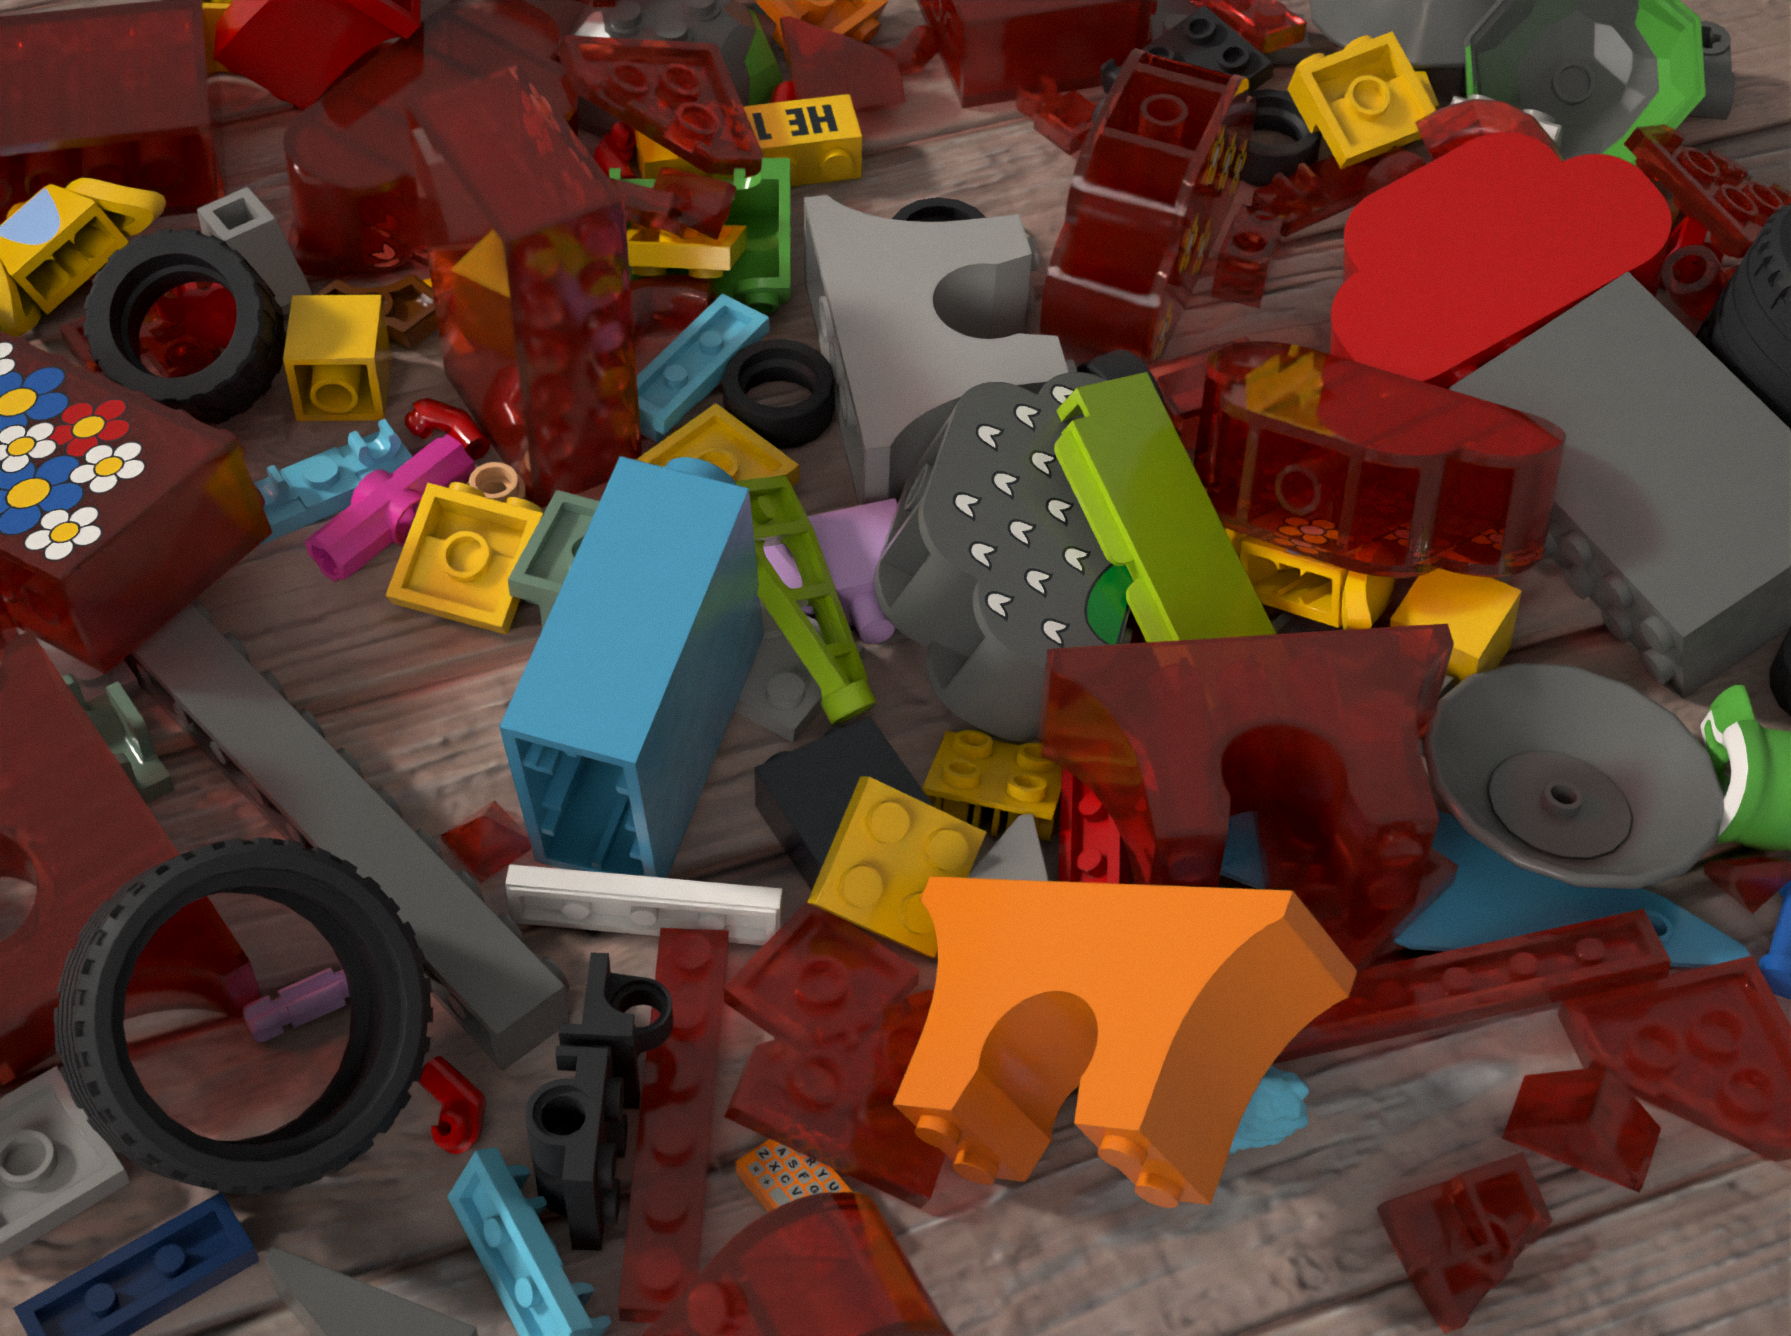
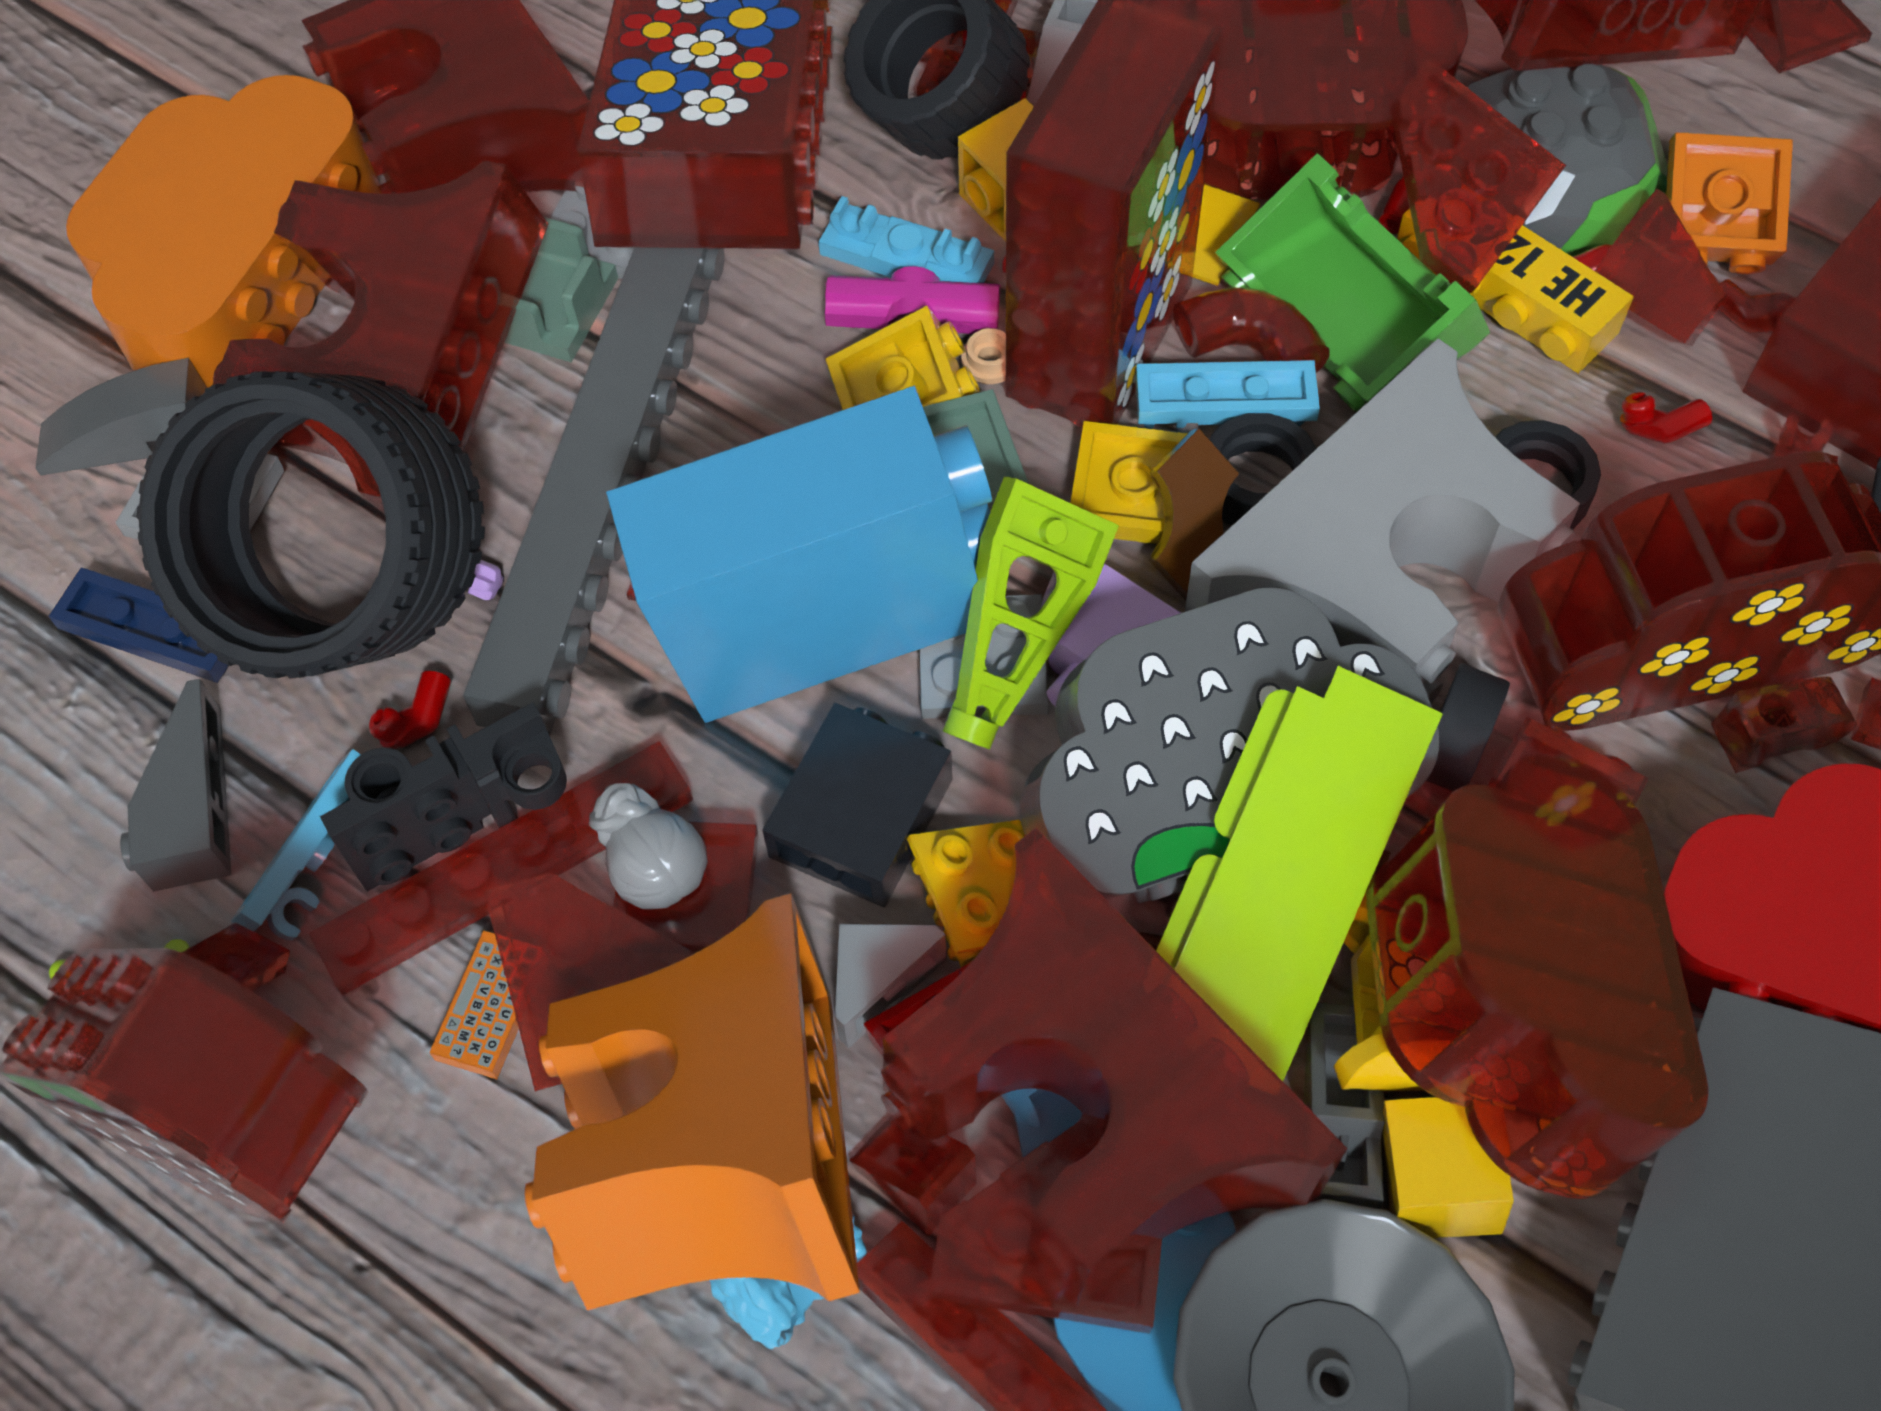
camera: 60 degrees right, 10 degrees up
(641, 903) = (666, 716): white tile -> none
(654, 251) = (1336, 300): yellow plate -> none
(678, 203) = (1349, 266): clear red bracket -> none
(774, 426) = (1193, 491): none -> reddish brown tile
(777, 979) = (649, 851): none -> light grey hair
(884, 862) = (816, 853): yellow plate -> none
(957, 160) = (1645, 421): none -> red arm

